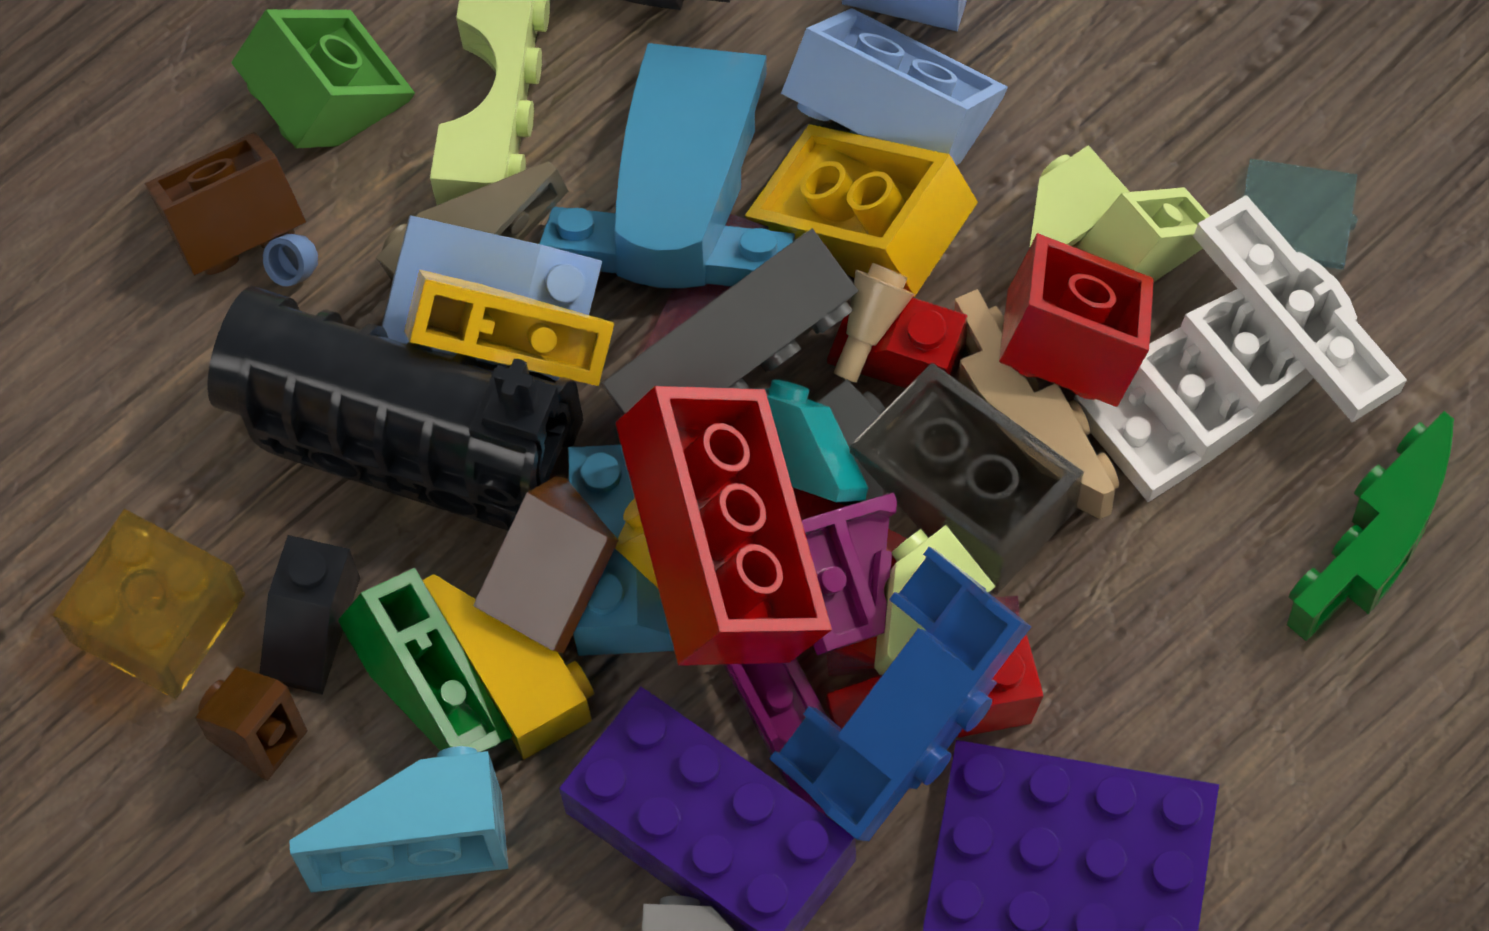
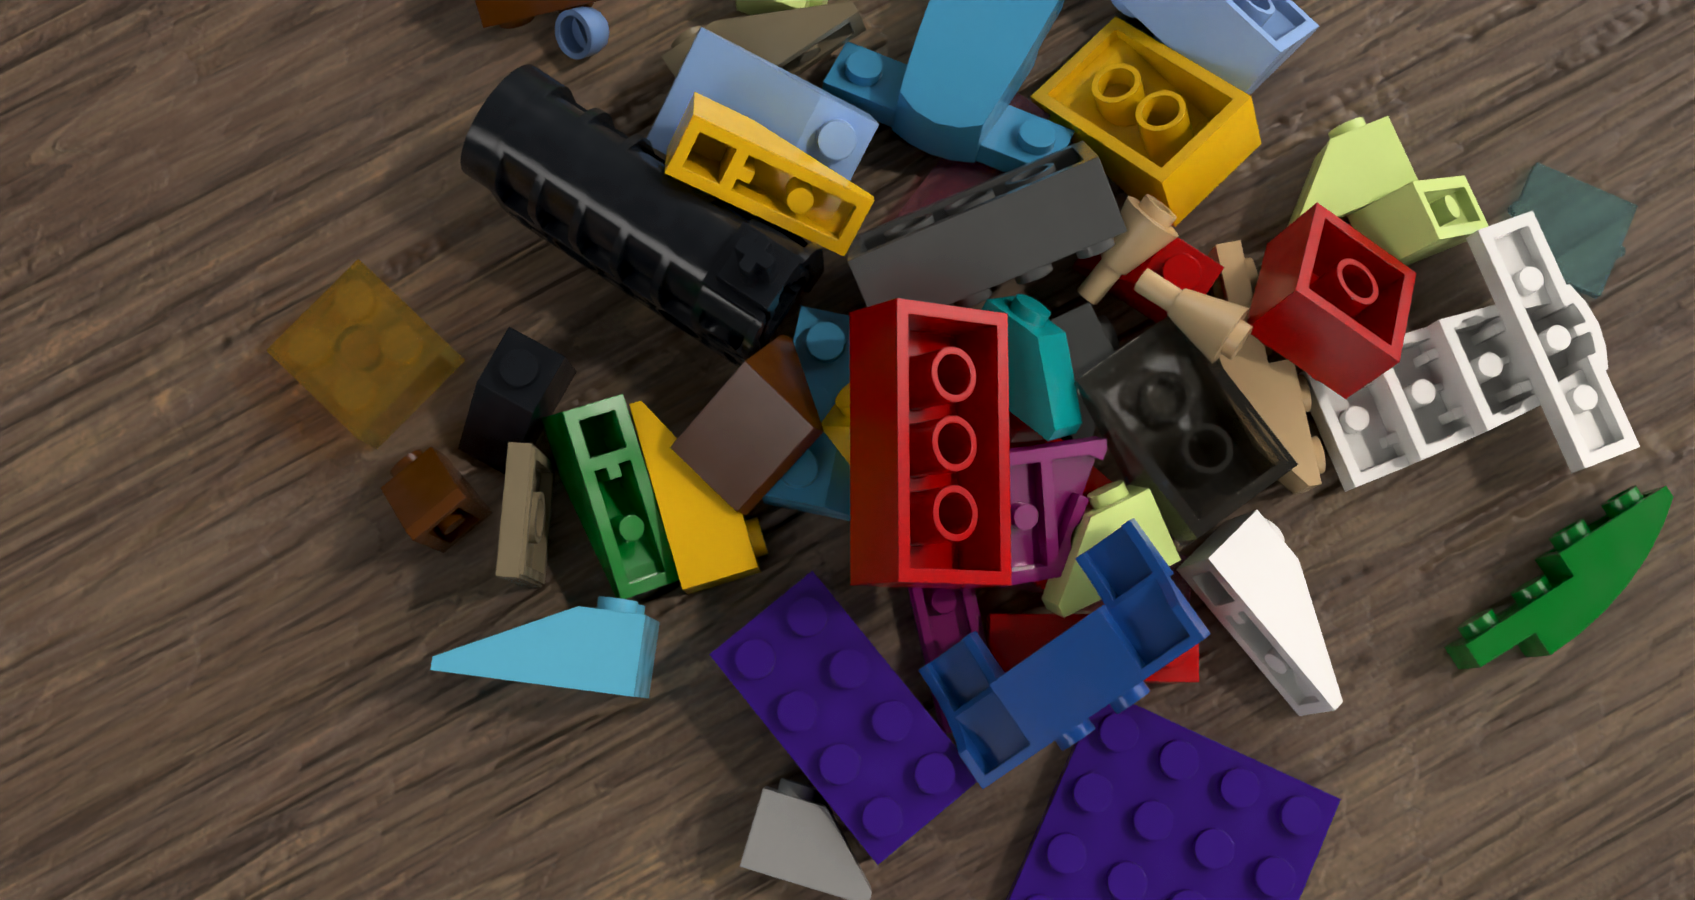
camera: 10 degrees right, 15 degrees up
(346, 708) = (525, 516): none -> dark tan tile
(963, 362) = (1208, 322): none -> tan cone
(1093, 619) = (1265, 604): none -> white slope

